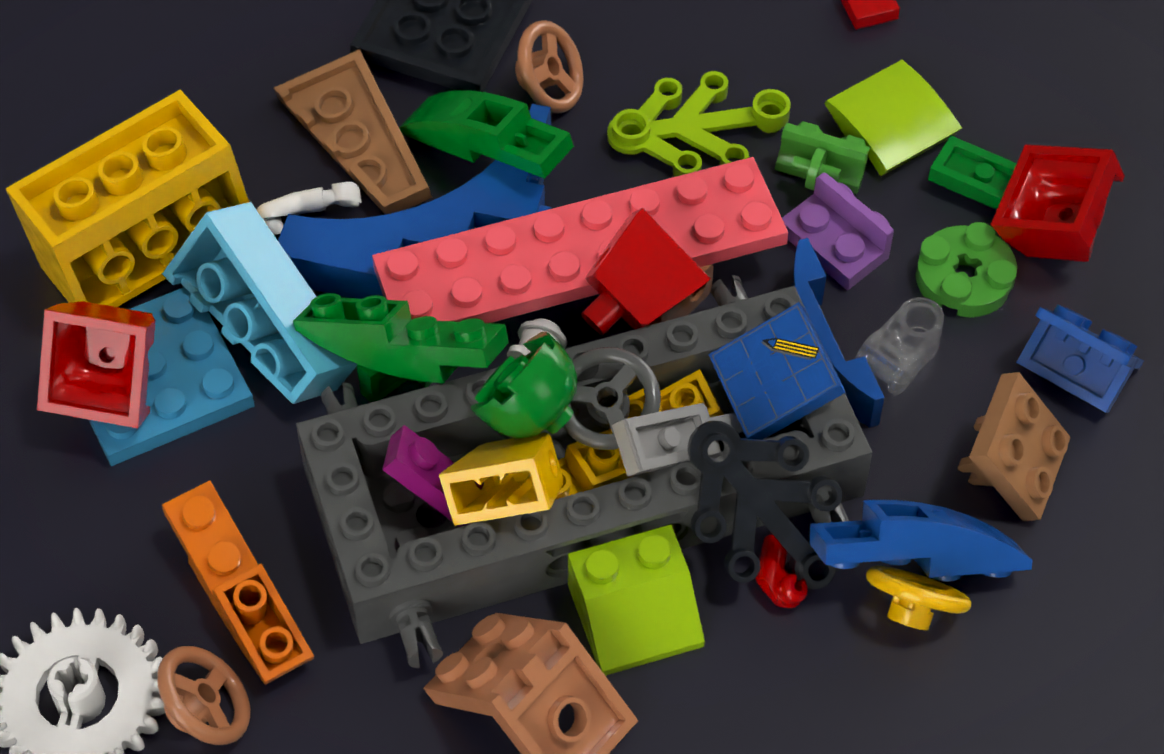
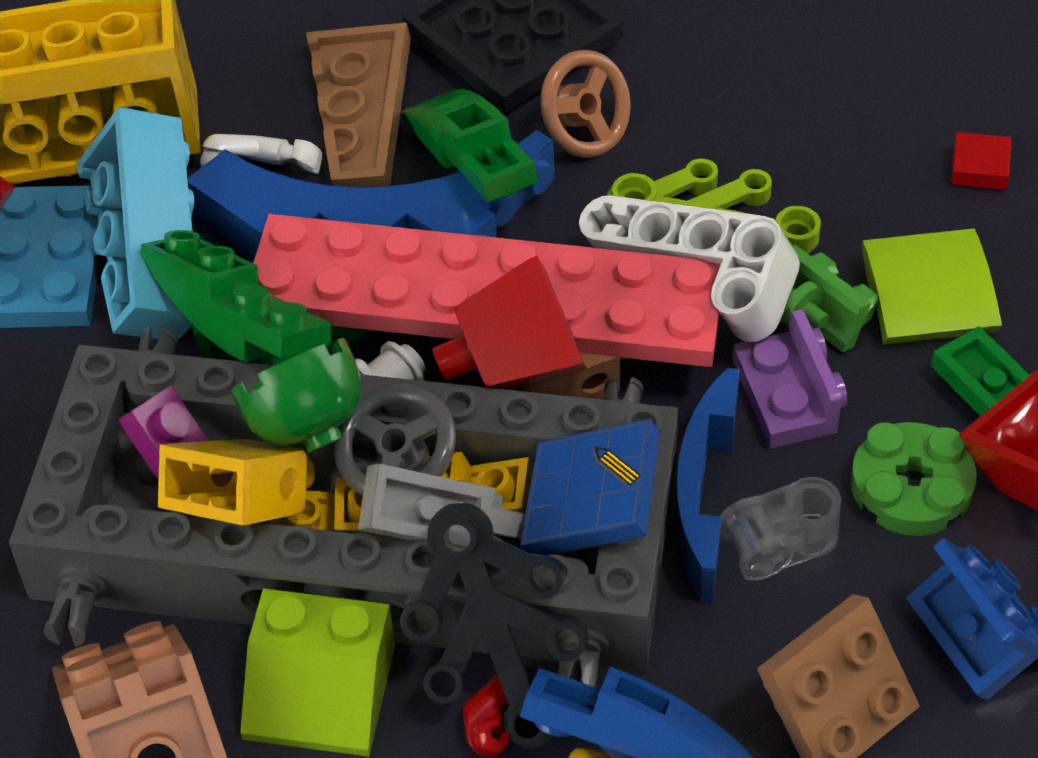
camera: 30 degrees right, 5 degrees down
(640, 156) = (712, 235): none -> white beam

